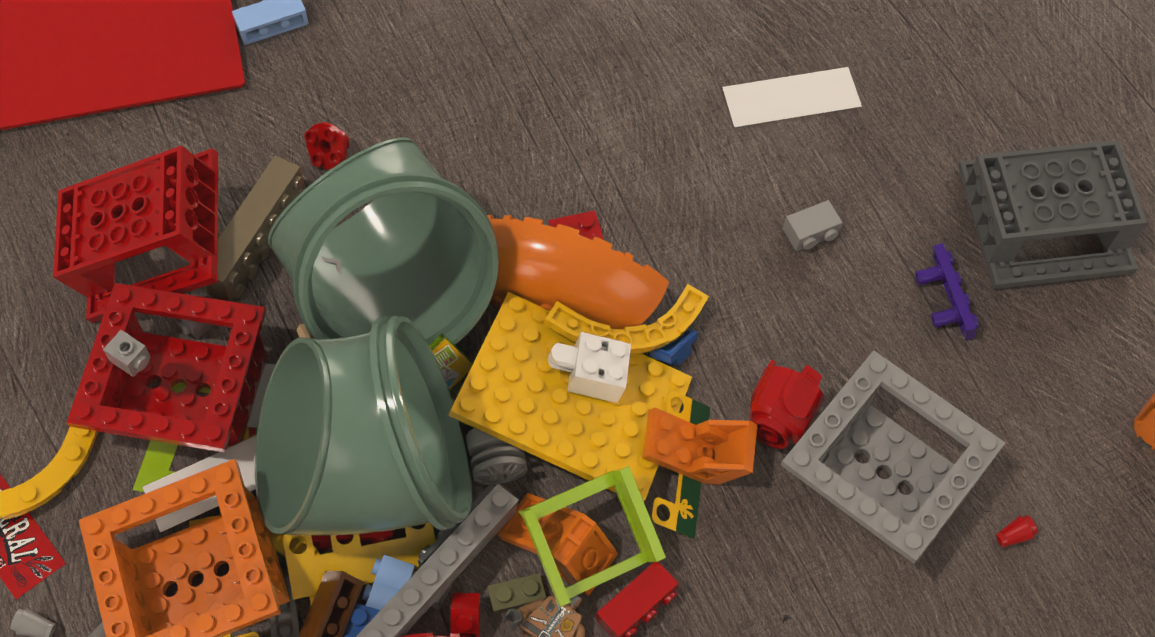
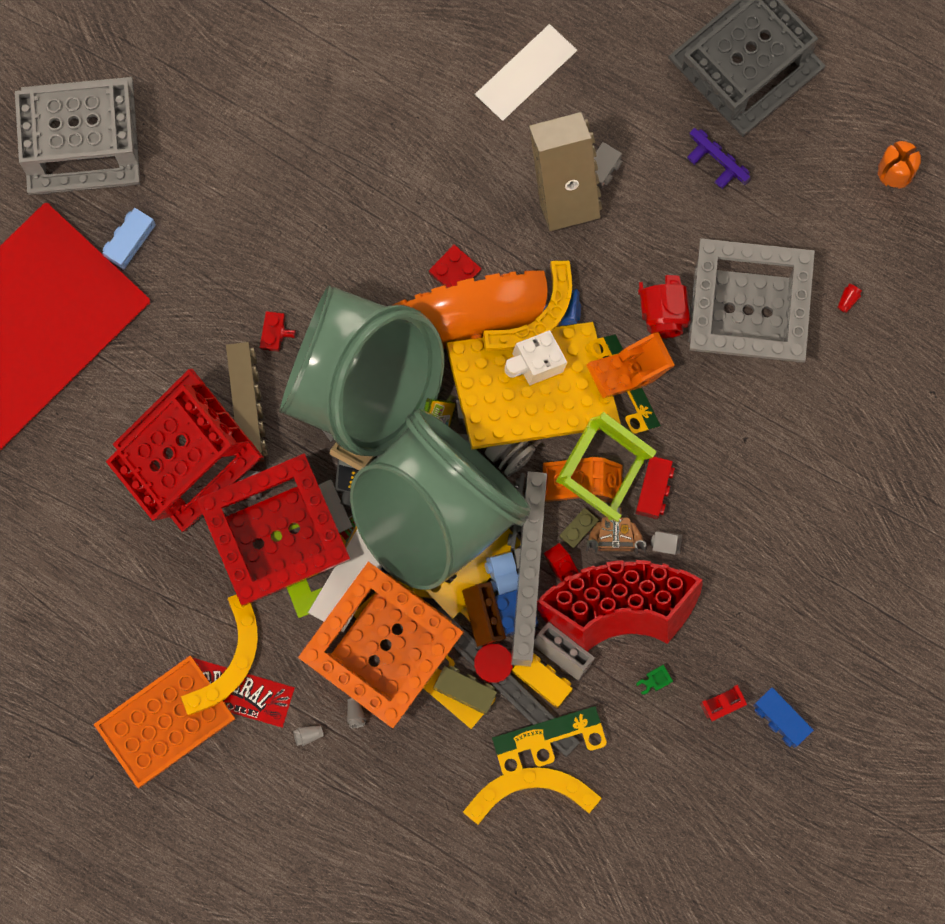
camera: 30 degrees left, 15 degrees up
(127, 353) = (249, 539): light grey brick -> none
(326, 145) = (246, 312): red plate -> none
(763, 189) = (566, 171): none -> dark tan piece

